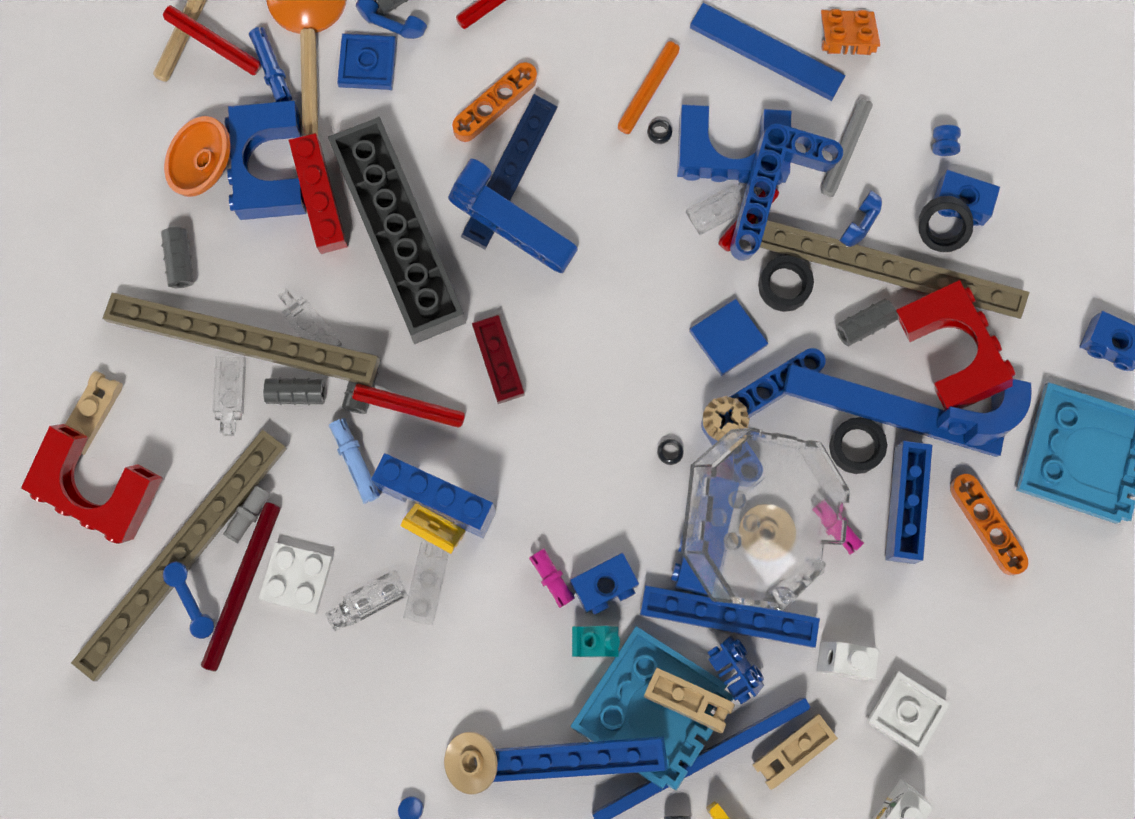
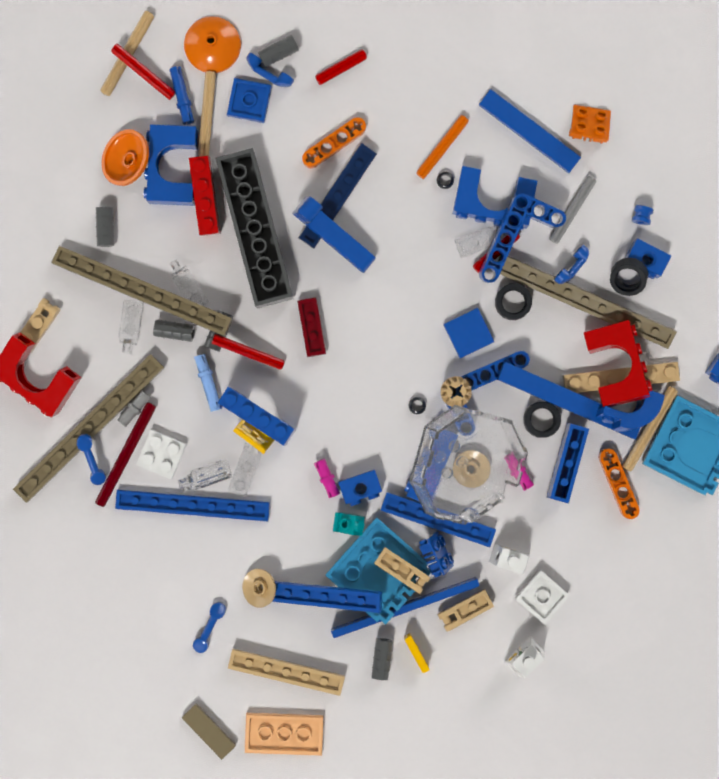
camera: 10 degrees right, 10 degrees up
(351, 649) = (192, 505): none -> blue tile
(866, 322) = (563, 336): dark grey axle -> none
(921, 379) = (593, 380): none -> tan plate
(1016, 443) = (648, 431): none -> tan axle

